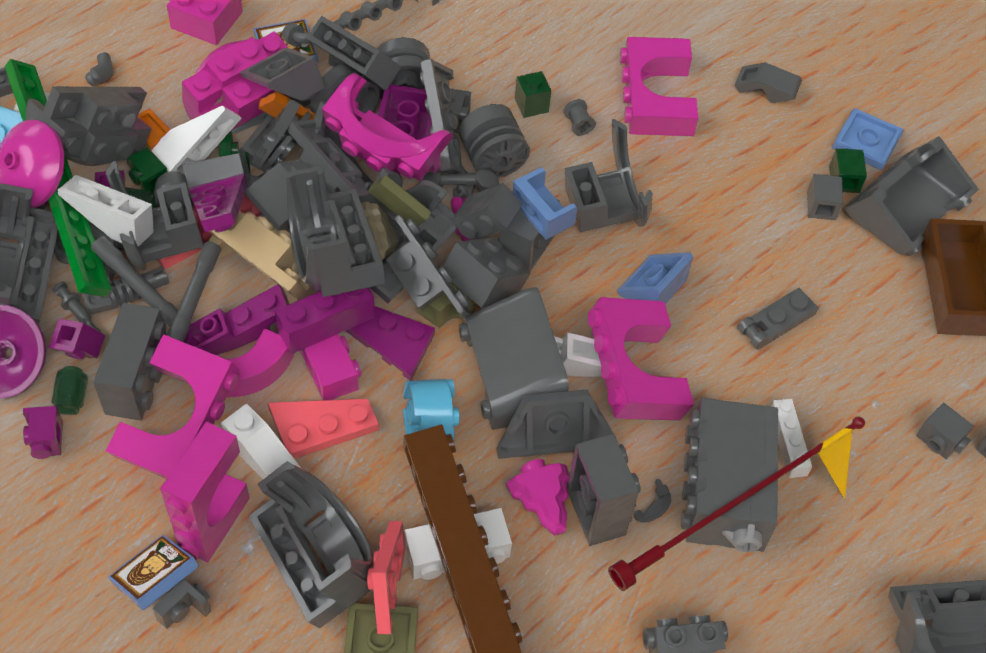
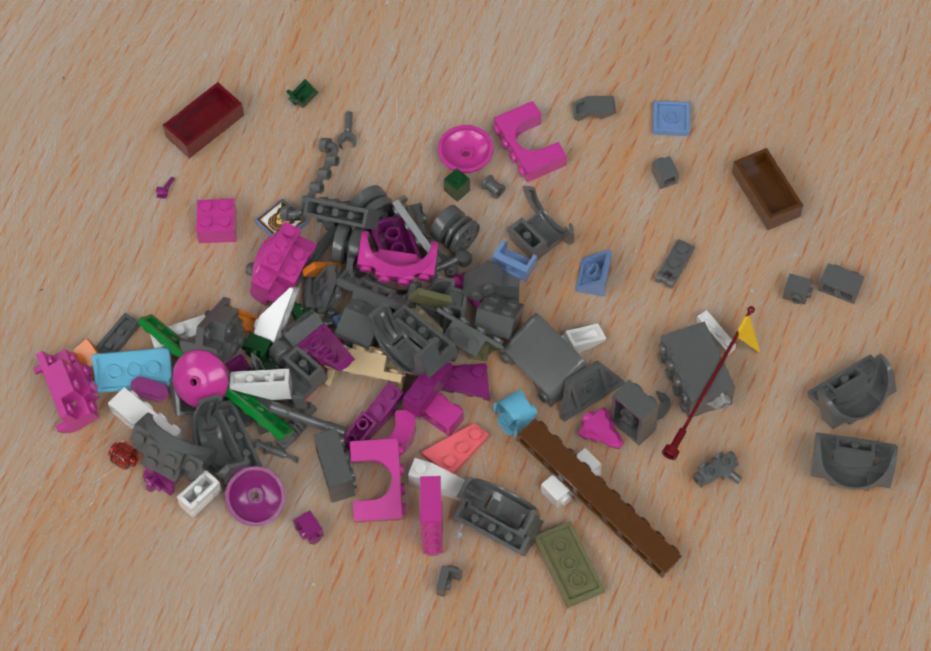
camera: 20 degrees left, 5 degrees up
(69, 390) = (306, 498): clear green brick -> none
(76, 339) = (292, 468): magenta brick -> none
(100, 72) = (181, 294): dark grey arm -> none
(153, 572) = (422, 570): tile -> none
(204, 266) = (337, 391): dark grey piece -> none
(287, 73) = (313, 248): dark grey slope -> none
(386, 573) = (546, 510): coral wing -> none
(569, 57) = (465, 141): none -> dark pink dish
(629, 389) = (616, 347): dark pink arch -> none
(851, 167) = (670, 145): dark green brick -> none
(910, 193) = (715, 148): dark grey windscreen -> none

